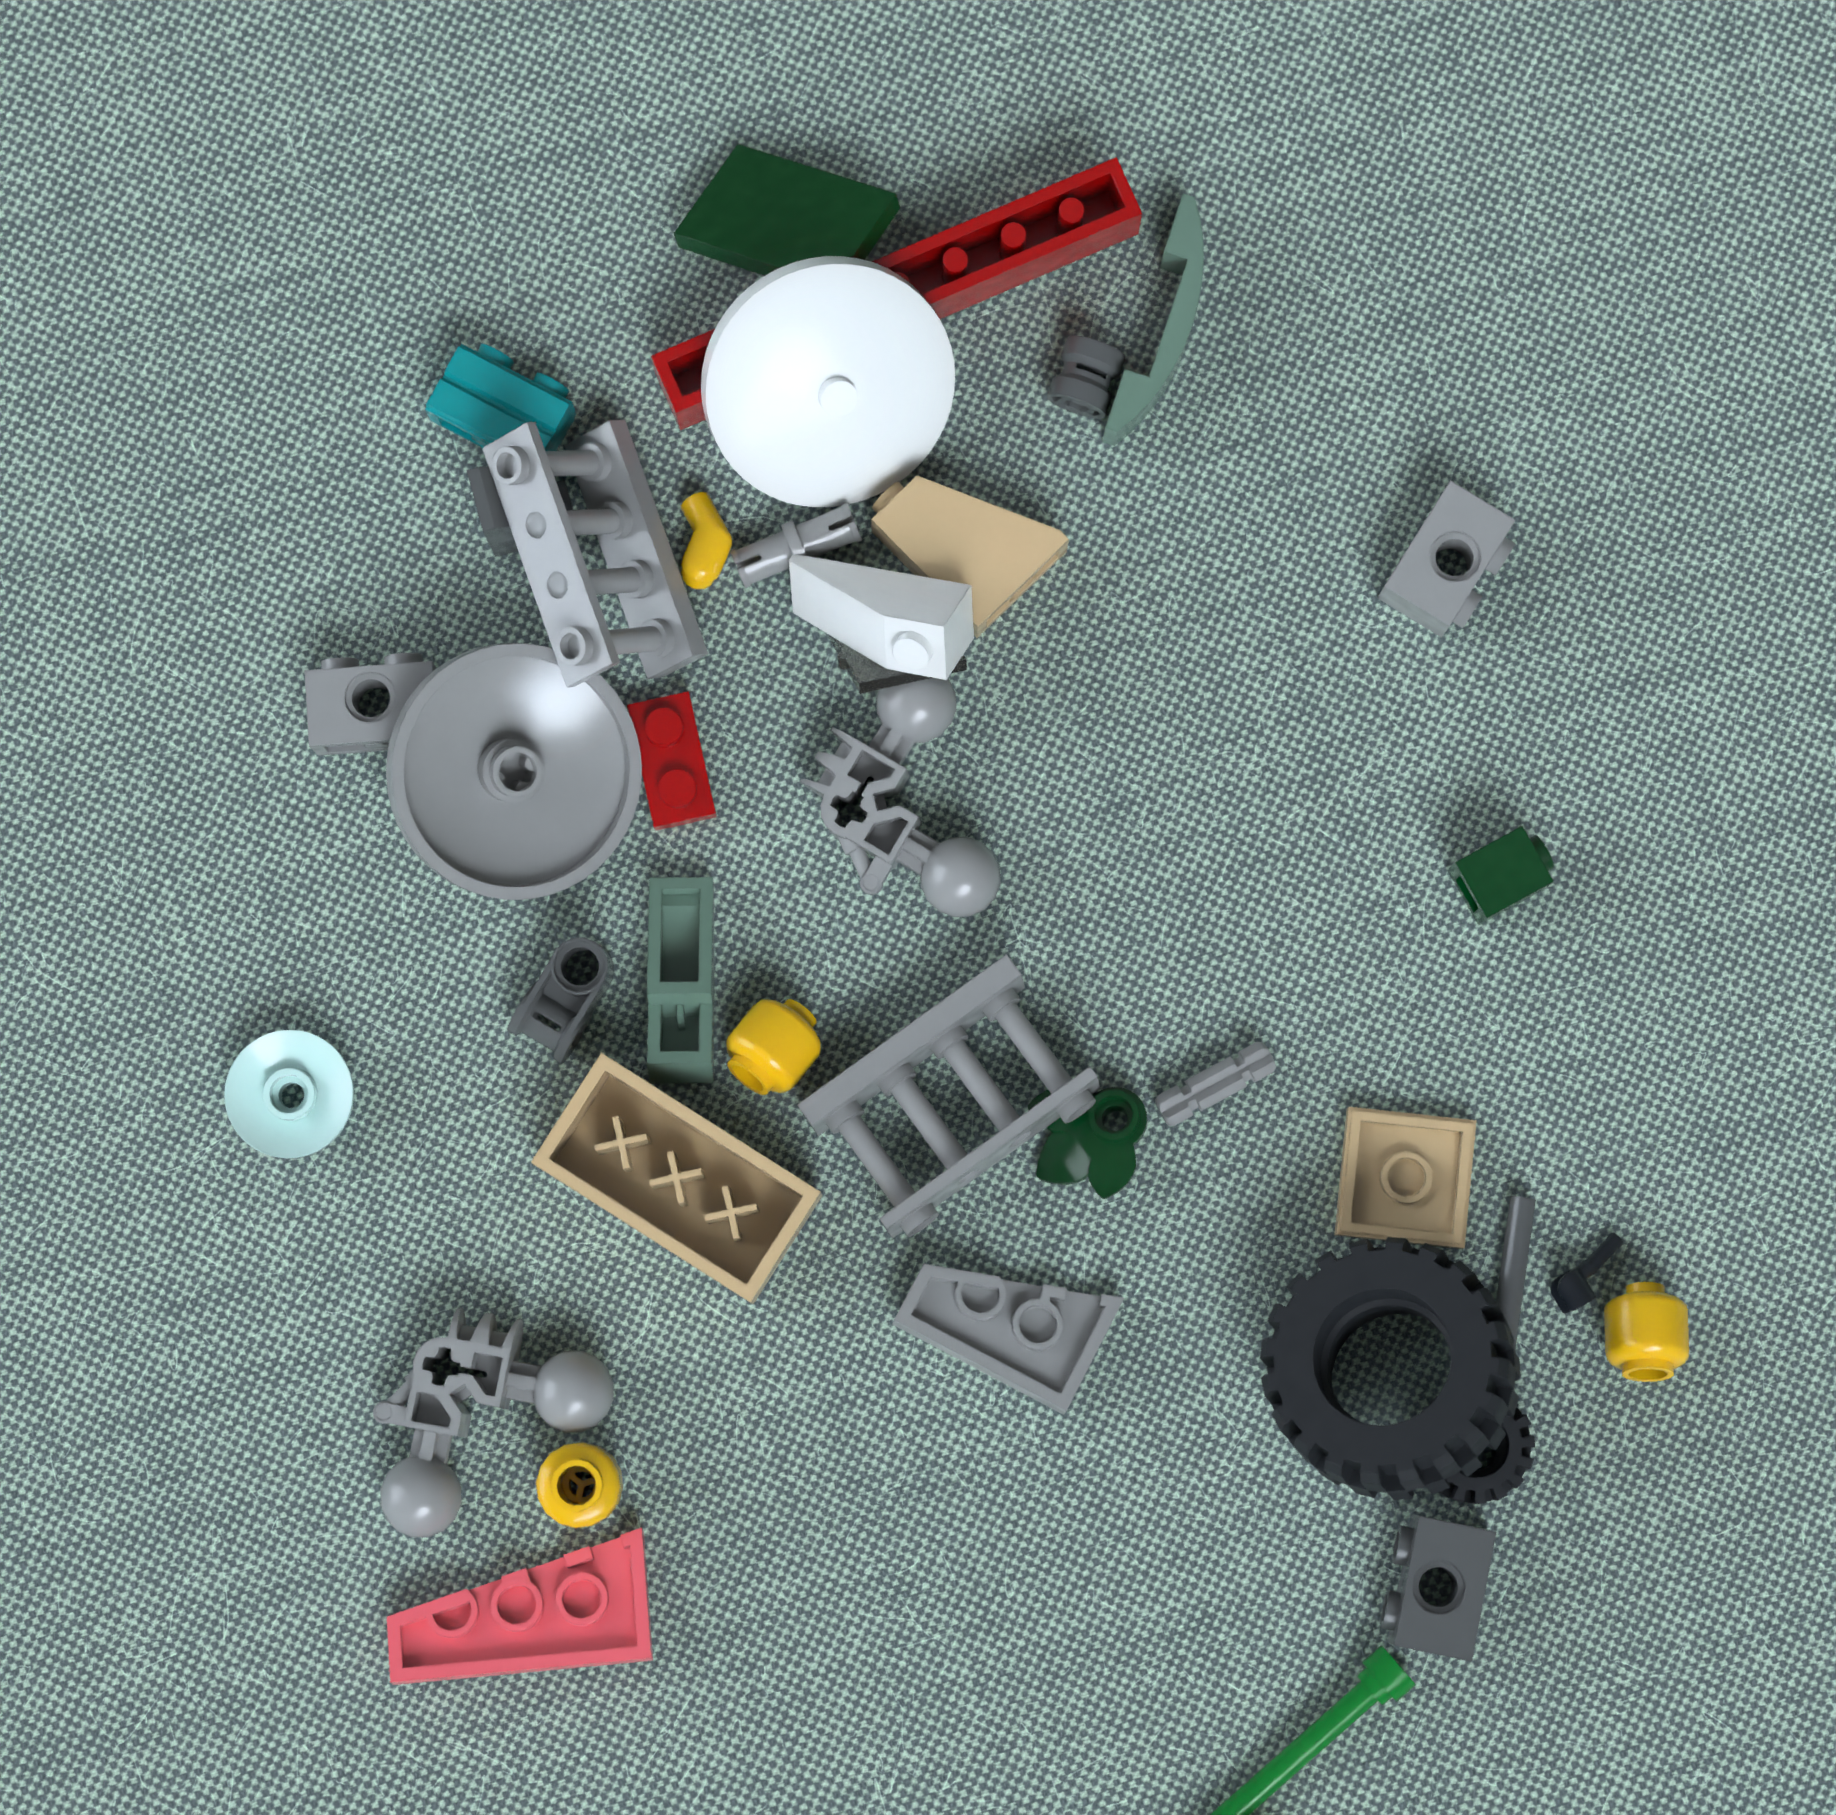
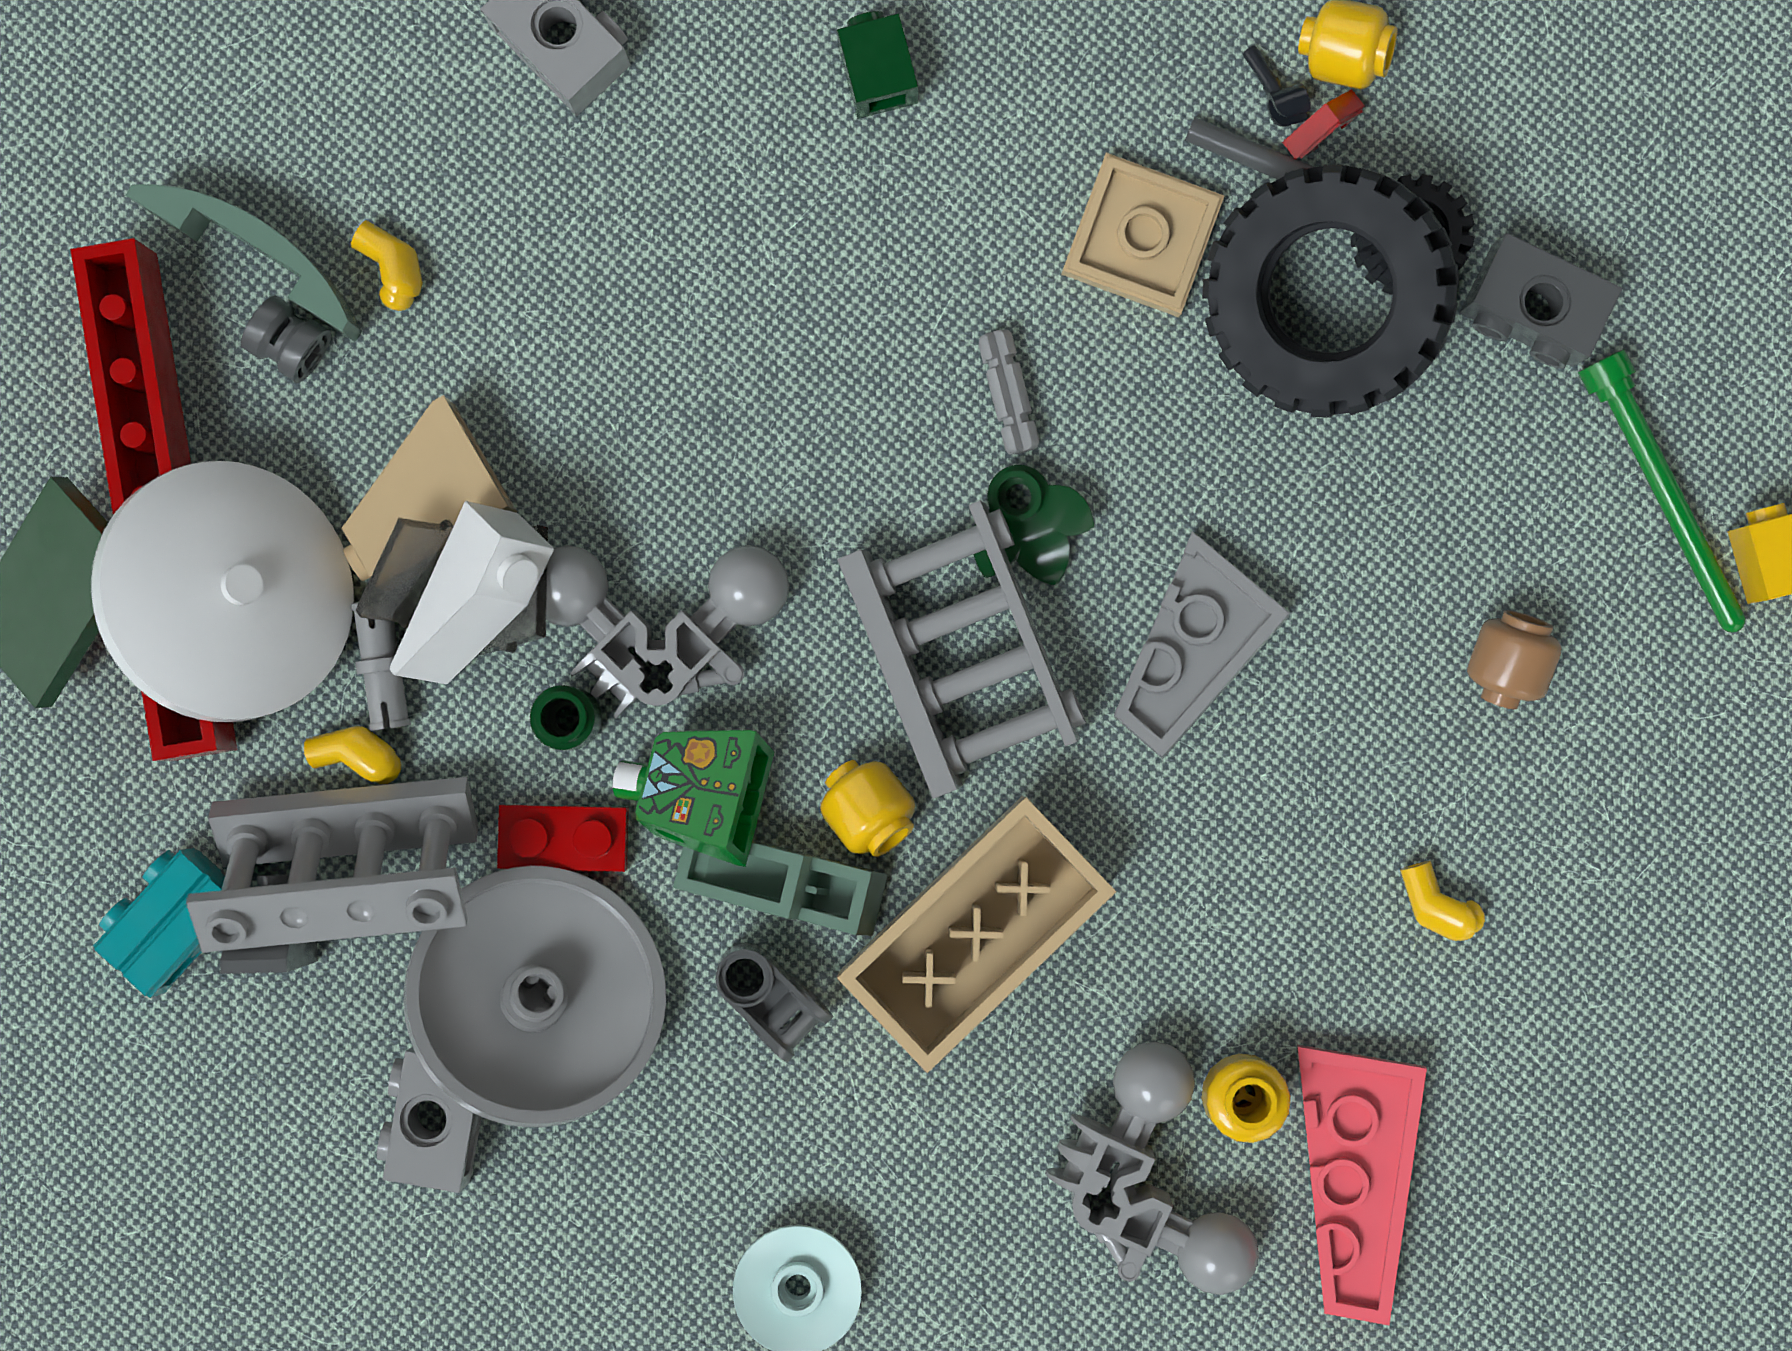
camera: 75 degrees left, 5 degrees up
(750, 880) = (700, 790): none -> green torso
(785, 714) = (546, 713): none -> dark green brick
(809, 1636) = (1438, 911): none -> yellow arm
(890, 544) = (403, 570): none -> clear smoke piece
(1077, 1648) = (1514, 659): none -> medium nougat head
(1187, 463) = (397, 265): none -> yellow arm
(1563, 1328) = (1332, 115): none -> red tile

